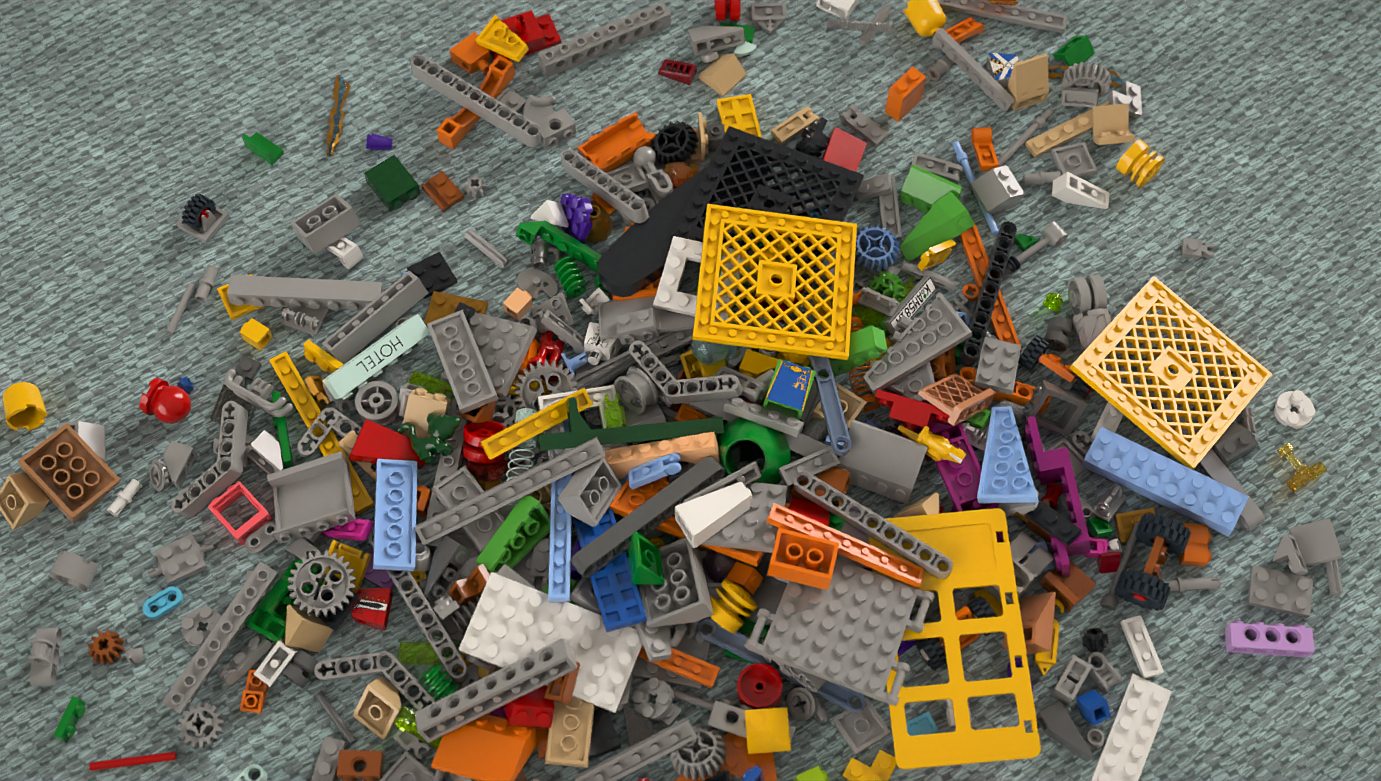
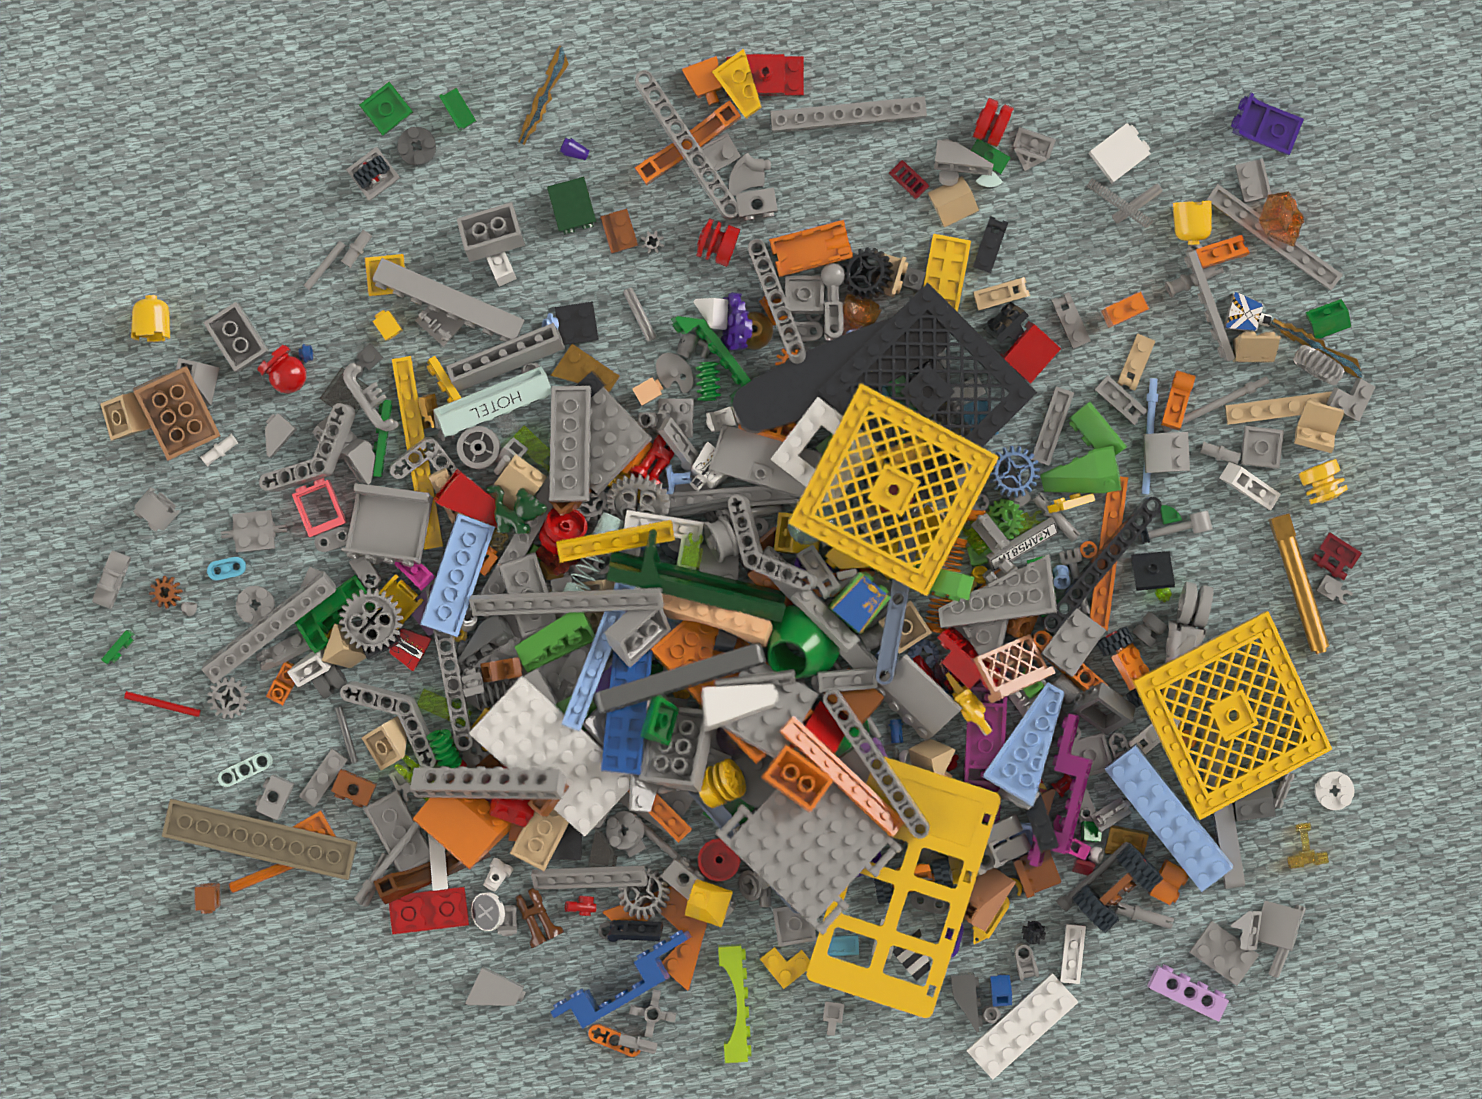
camera: 25 degrees right, 25 degrees up
(111, 390) = (236, 337): none -> light grey brick
(159, 475) = (256, 442): light grey gear -> none
(198, 167) = (386, 108): none -> green plate
(233, 178) = (421, 156): none -> dark grey plate
(424, 474) = (502, 538): none -> clear yellow plate
(533, 163) = (717, 242): none -> red wheel
(636, 326) = (746, 473): light grey bracket -> none
(654, 470) = (701, 632): light blue hinge -> none
(745, 577) = (744, 763): orange brick -> none
(768, 95) = (990, 245): none -> black plate
(872, 503) = (896, 731): none -> blue pin
(874, 187) = (1048, 400): light grey plate -> none
(934, 136) = (1136, 361): none -> tan plate
(982, 655) = (928, 903): none -> dark grey plate
(990, 713) = (914, 962): none -> sticker
(1035, 286) = (1152, 570): none -> black plate
(1071, 680) = (993, 960): light grey brick -> none
(1079, 97) = (1304, 379): light grey plate -> none
(1130, 218) = (1285, 537): none -> pearl gold brick
(1185, 216) = (1340, 551): none -> dark red plate

